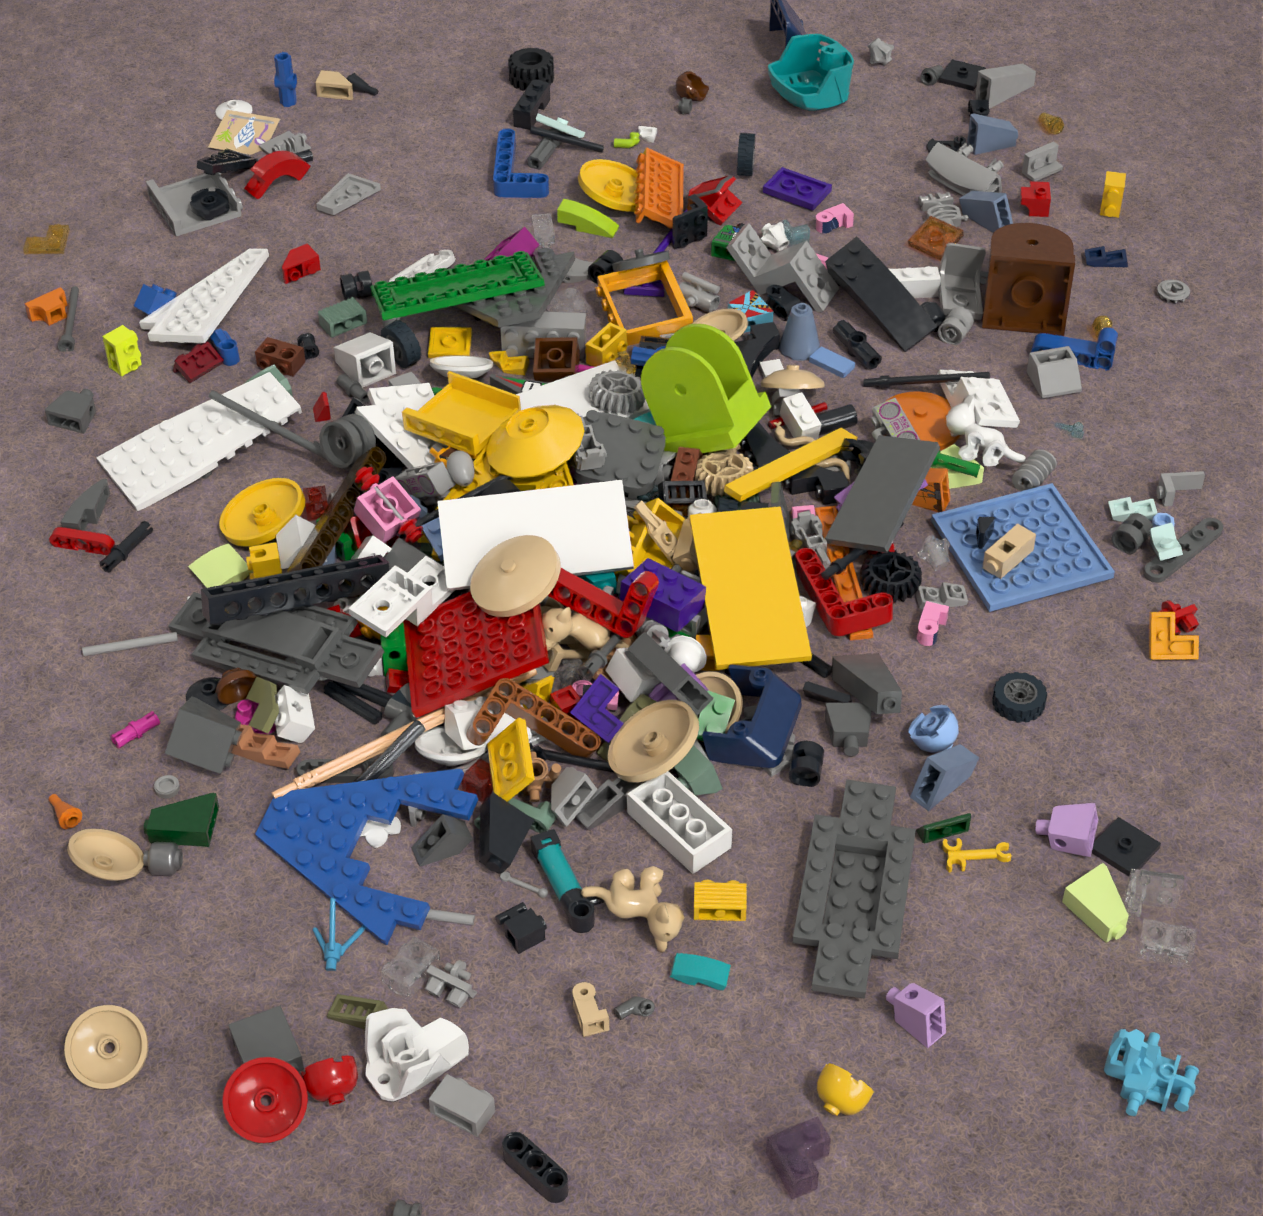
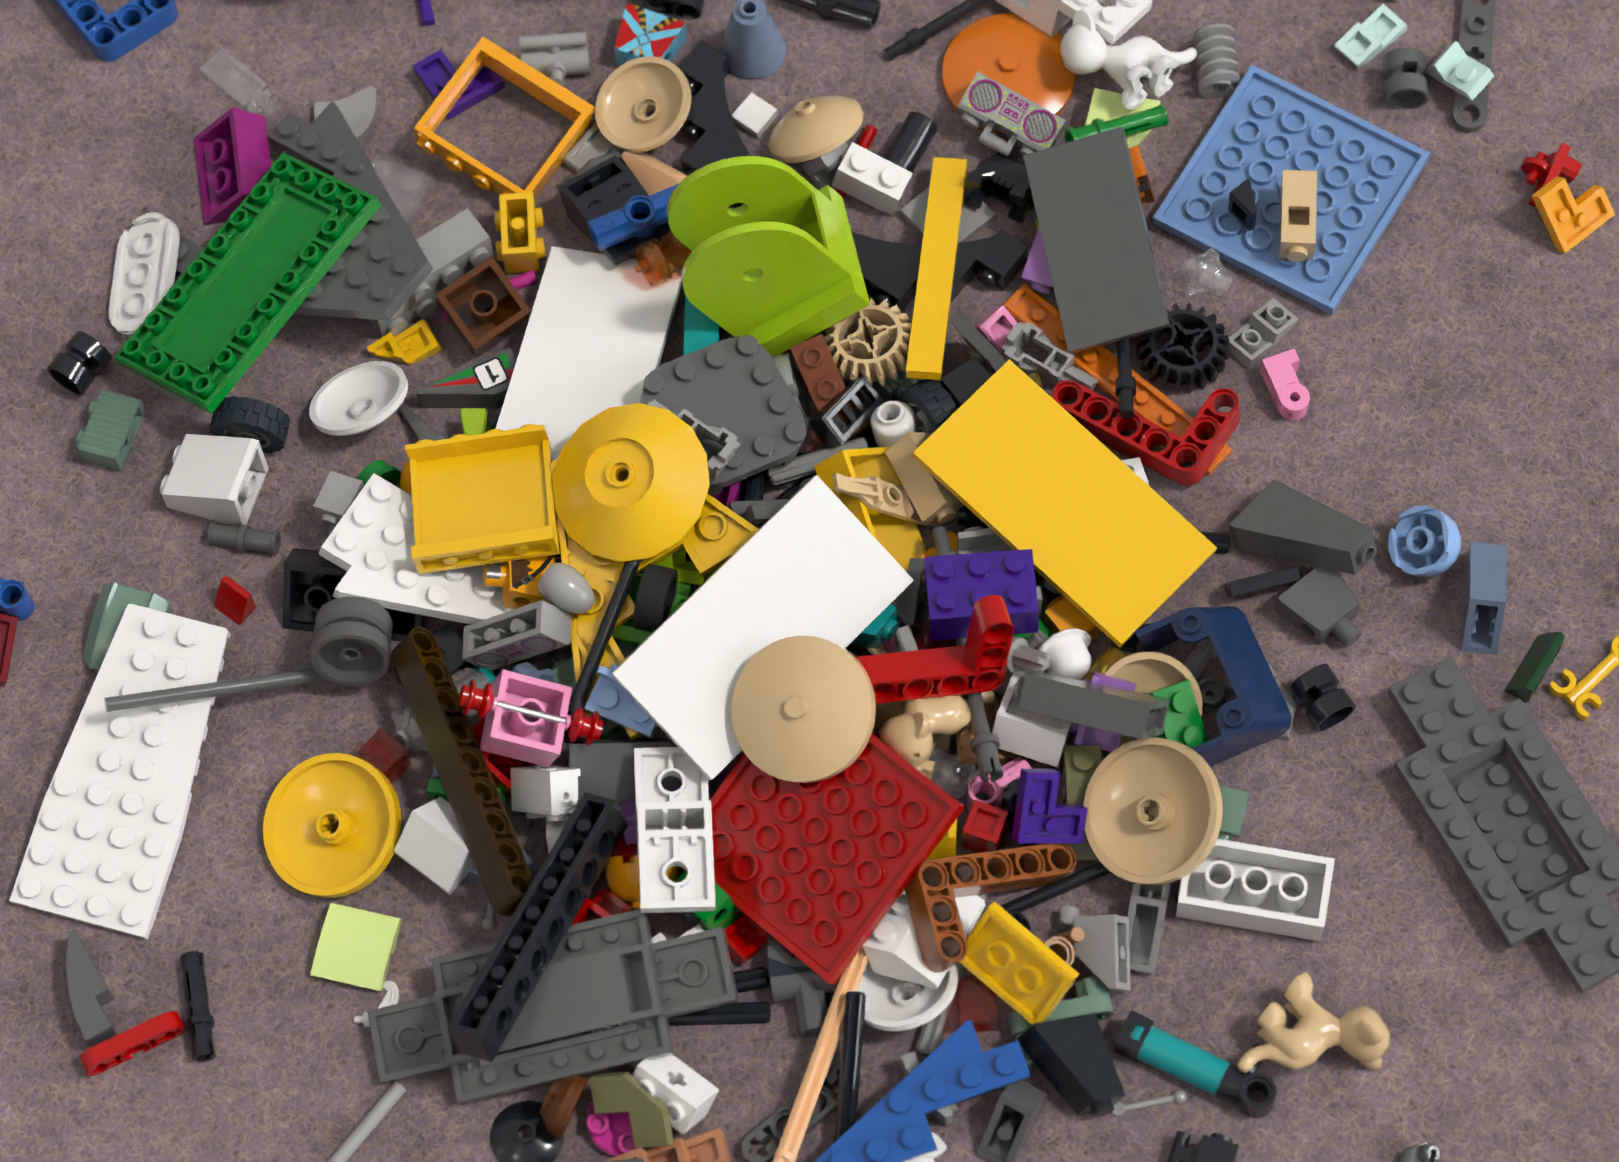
camera: 35 degrees left, 20 degrees up
(264, 560) = (429, 908): yellow brick -> none
(286, 356) = (93, 549): copper brick -> none
(309, 343) = (111, 512): black bush -> none
(449, 341) = (294, 366): yellow tile -> none
(586, 219) = (283, 24): lime slope -> none
(603, 265) = (391, 94): black wheel -> none
(616, 392) = (603, 314): light grey gear -> none
(625, 361) = (569, 242): clear yellow arm -> none
(640, 260) = (449, 61): dark grey piece -> none
(701, 969) = (1442, 1062): teal slope -> none
(720, 900) = (1386, 955): yellow brick -> none
(780, 435) = (864, 220): tan animal -> none
(832, 362) = (818, 49): medium blue tile -> none
(1019, 697) = (1478, 403): black wheel -> none
(1161, 519) = (1421, 33): light blue tile -> none

